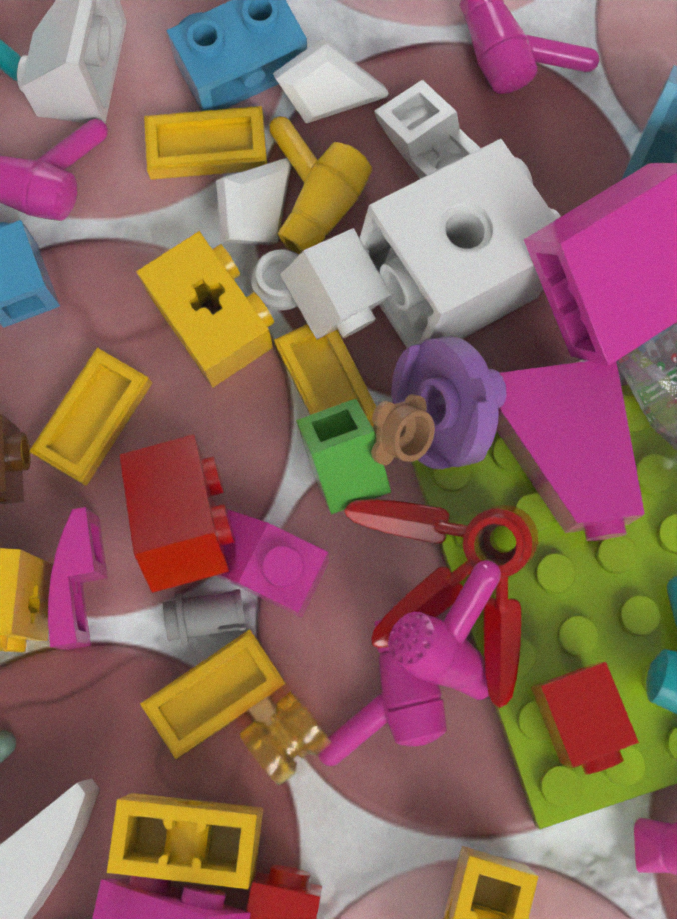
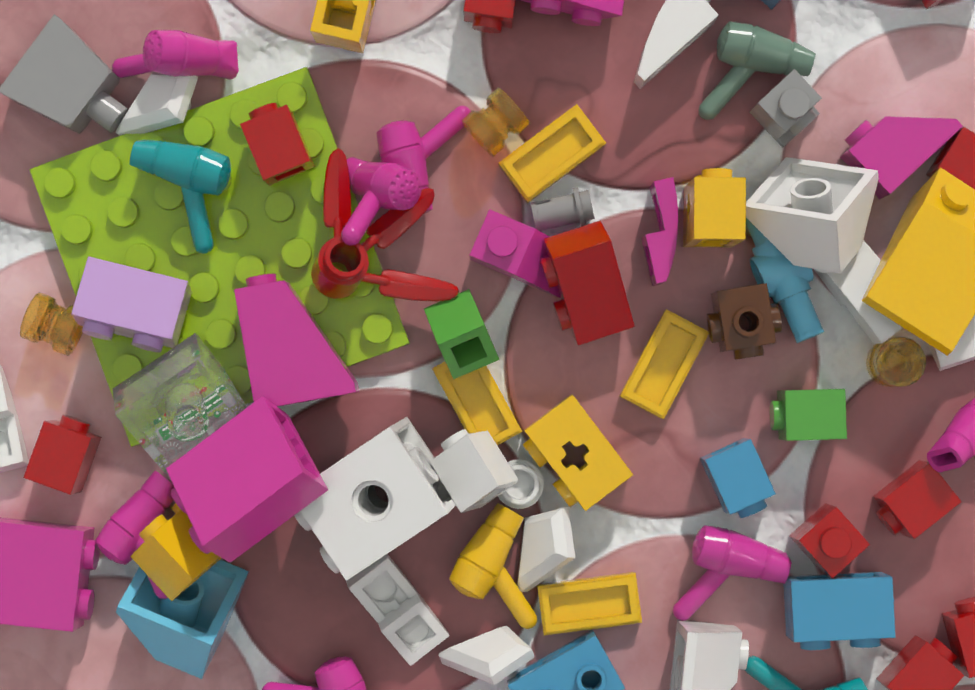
camera: 175 degrees right, 10 degrees up
(185, 840) = (562, 45): yellow brick -> none
(402, 430) = (416, 347): medium nougat plate -> none
(472, 394) = (383, 373): medium lavender plate -> none

